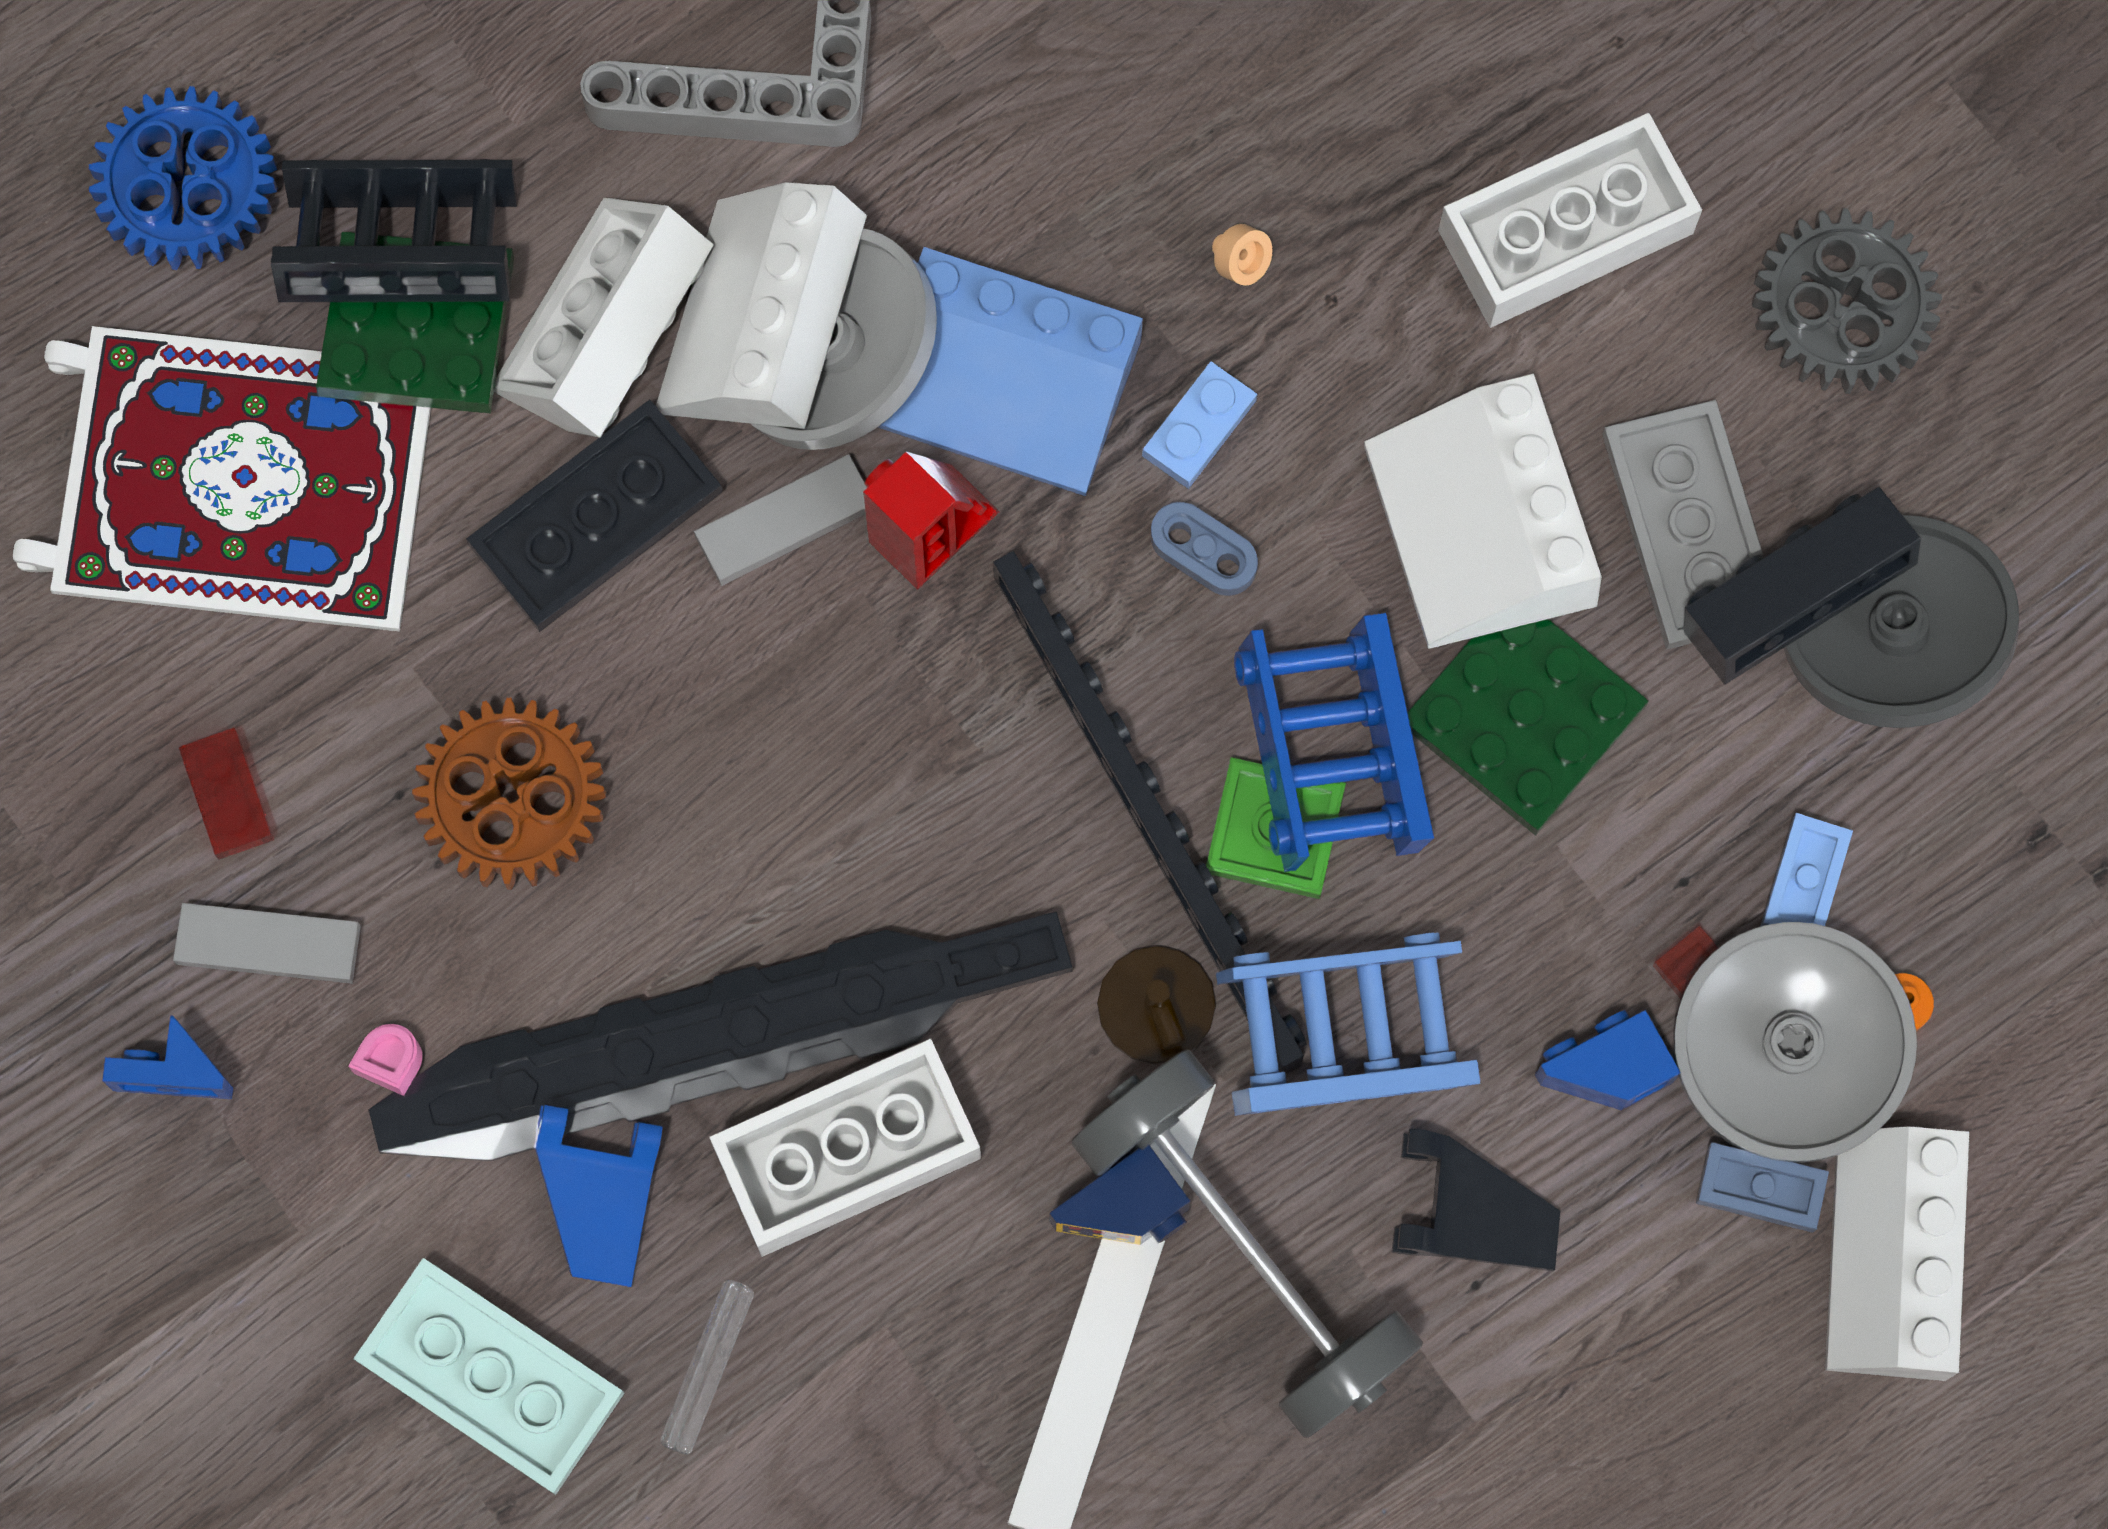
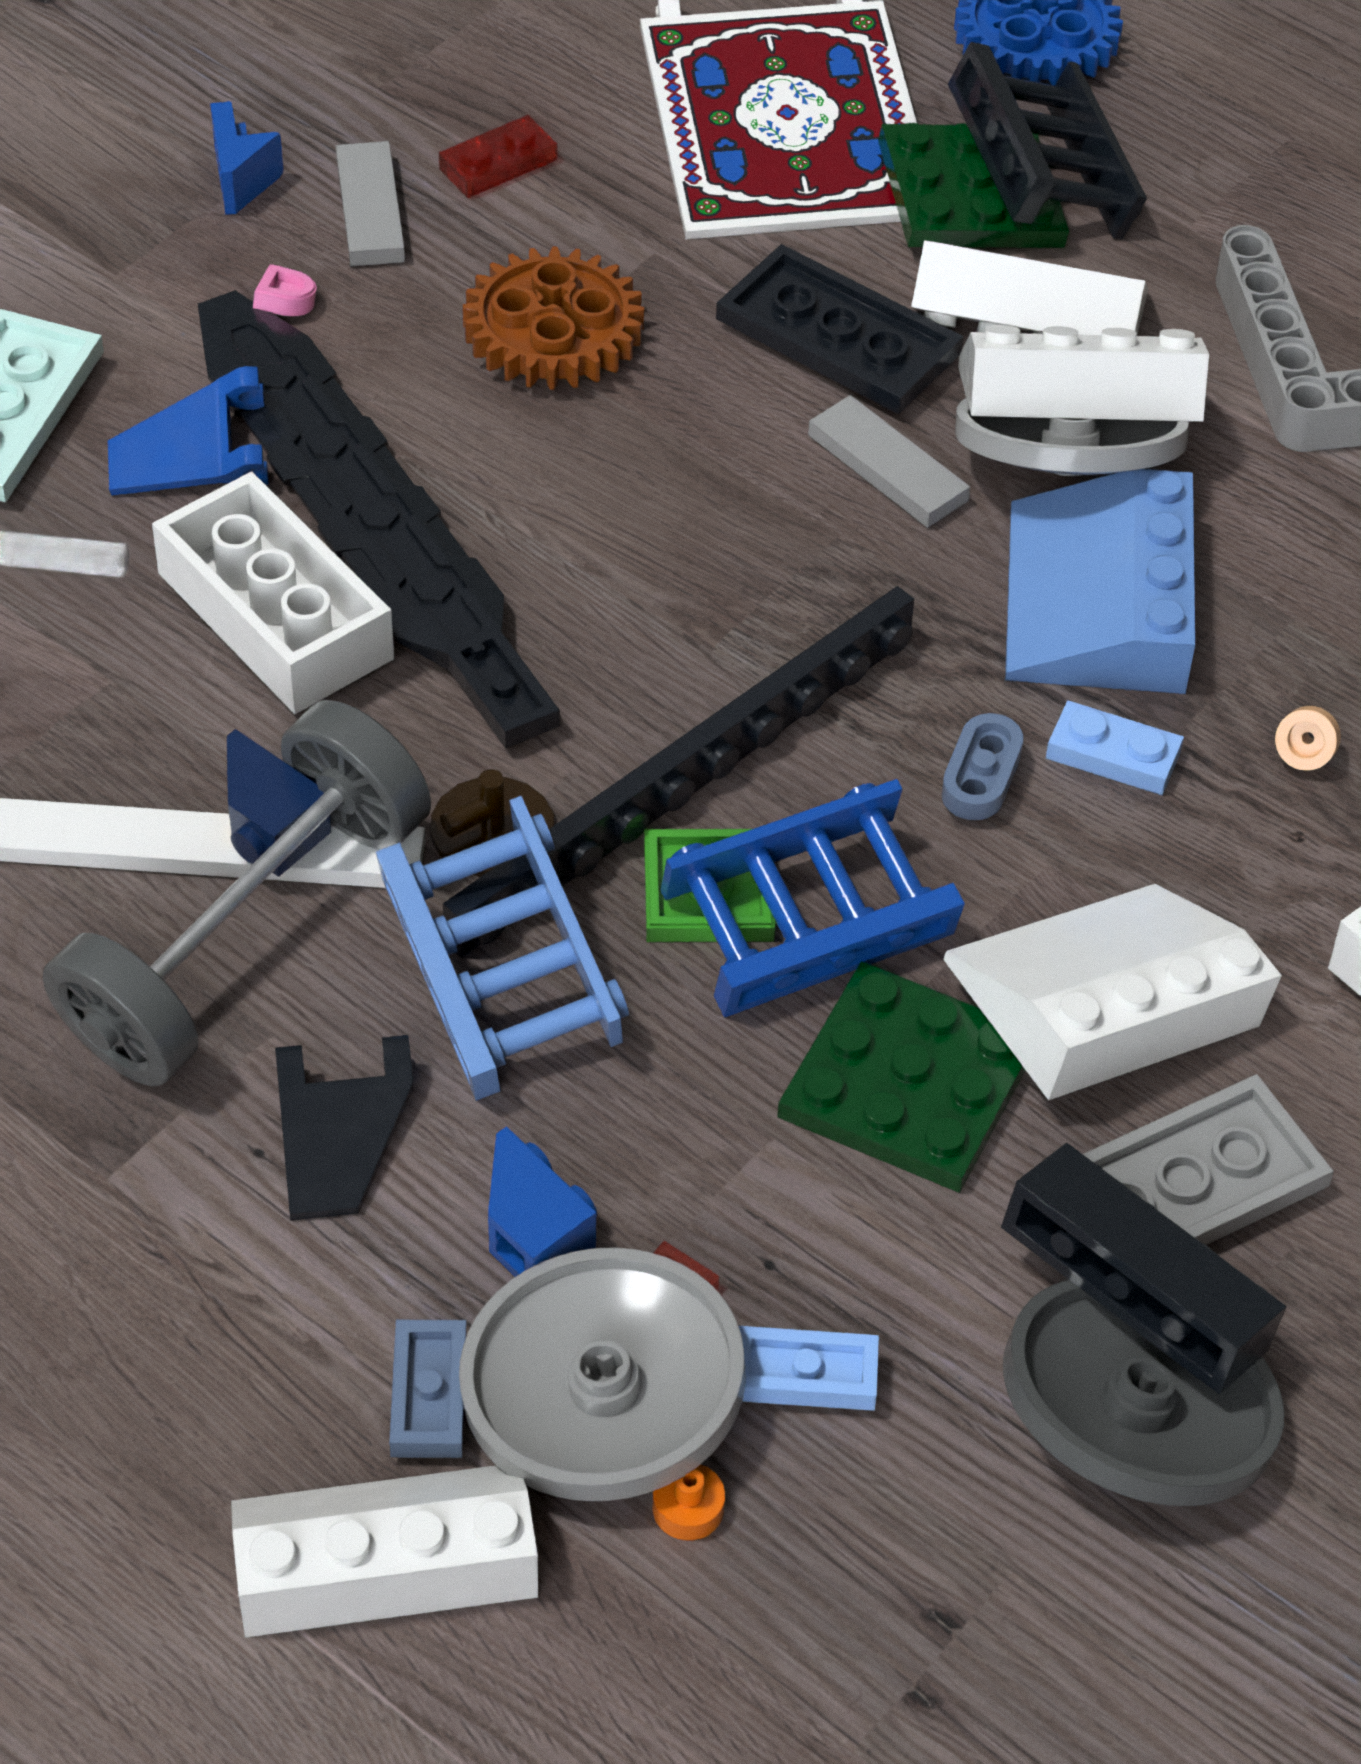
camera: 75 degrees right, 25 degrees down
(922, 514) = (924, 515): red wedge -> none

